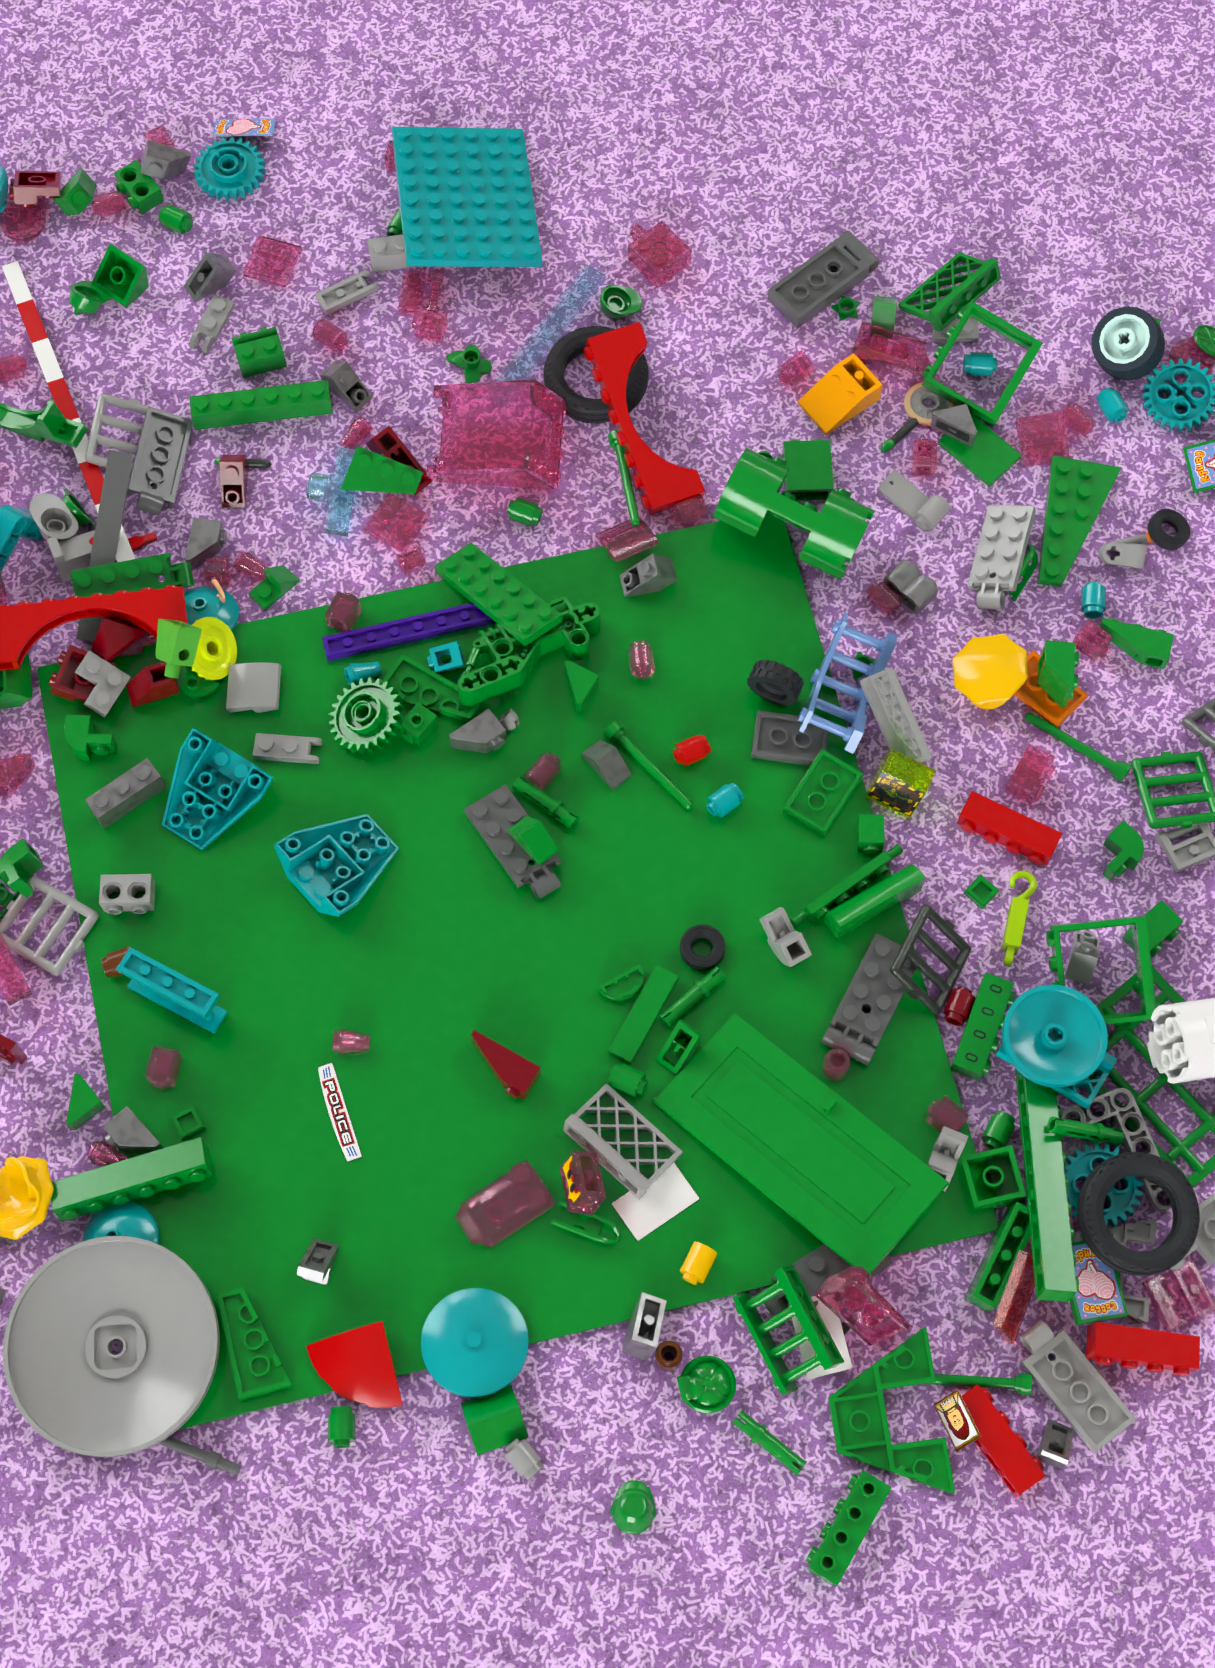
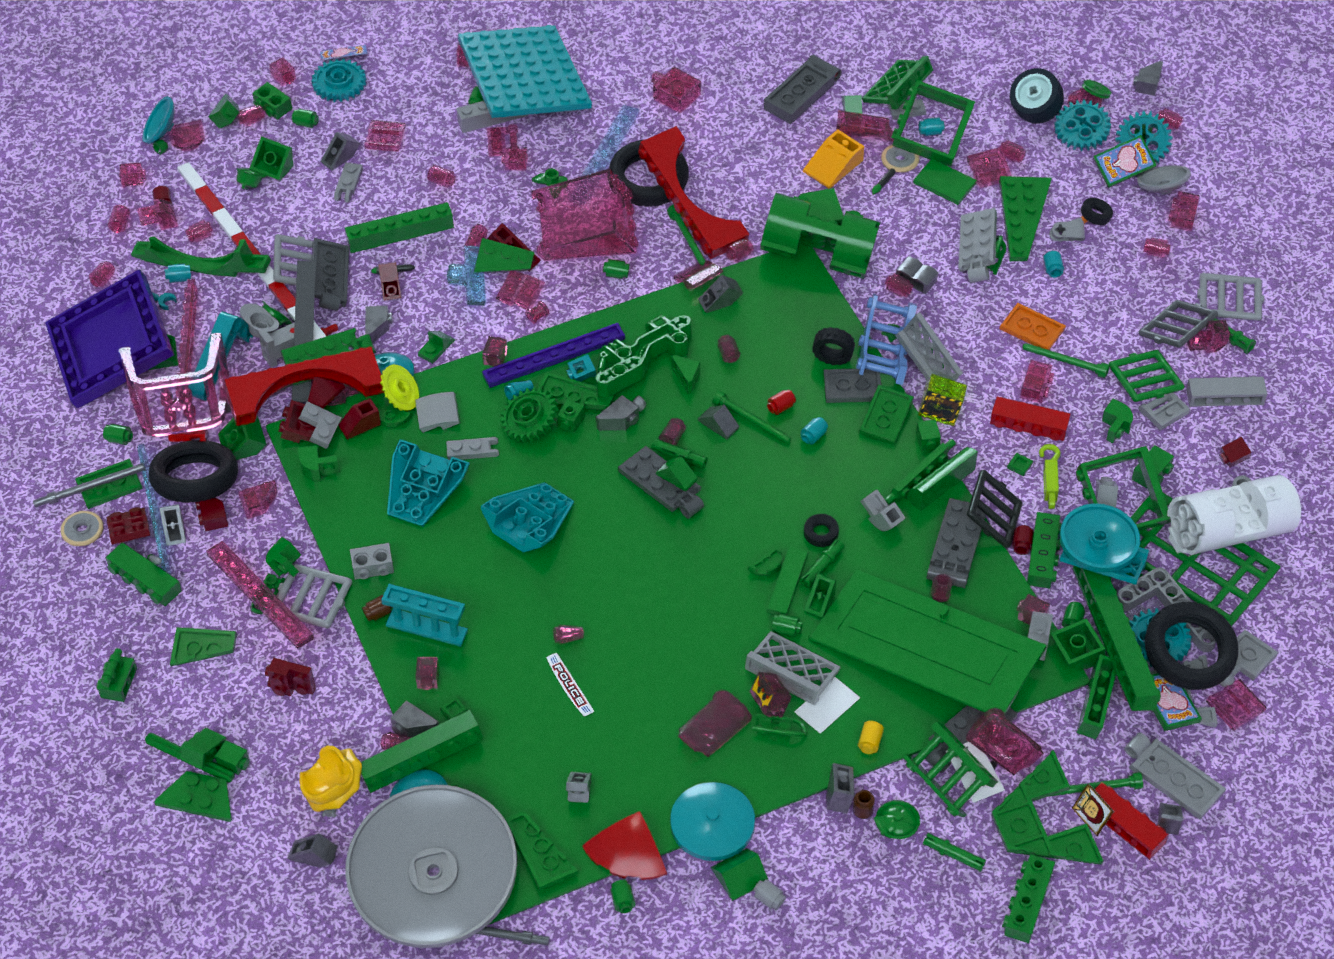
camera: 10 degrees left, 15 degrees down
(30, 184) = (188, 110): dark red plate -> none
(83, 1103) = (370, 709): green slope -> none
(125, 793) = (355, 495): flat silver brick -> none
(163, 161) = (288, 79): flat silver slope -> none
(176, 645) = (377, 382): bright green torso -> none
(217, 574) = (390, 342): clear pink animal -> none
(250, 565) = (415, 334): clear pink cone -> none
(259, 352) = (389, 194): green brick -> none
(346, 292) = (446, 147): light grey hinge -> none
(346, 385) = (461, 205): flat silver slope -> none
(498, 594) = (610, 321): green plate -> none
(511, 1070) = (696, 632): dark red slope -> none
(619, 301) = (653, 124): green hat -> none
(633, 1507) = (861, 916): green hat -> none
(801, 364) = (796, 148): clear pink brick -> none
(846, 302) = (823, 102): green plate -> none
(915, 504) = (911, 225): light grey door -> none
(924, 457) = (905, 191): clear pink brick -> none
(955, 423) = (924, 165): flat silver slope -> none
(990, 670) = (990, 318): yellow piece -> none
(1015, 1298) = (1115, 720): clear red tile -> none
(1057, 670) = (1039, 308): green slope -> none
(1090, 635) = (1060, 289): clear pink brick -> none
(1094, 1132) = (1145, 600): green pin -> none
(1112, 405) = (1035, 139): teal brick -> none
(1141, 643) = (1096, 286): green slope -> none
(1143, 1347) = (1218, 739): red brick -> none

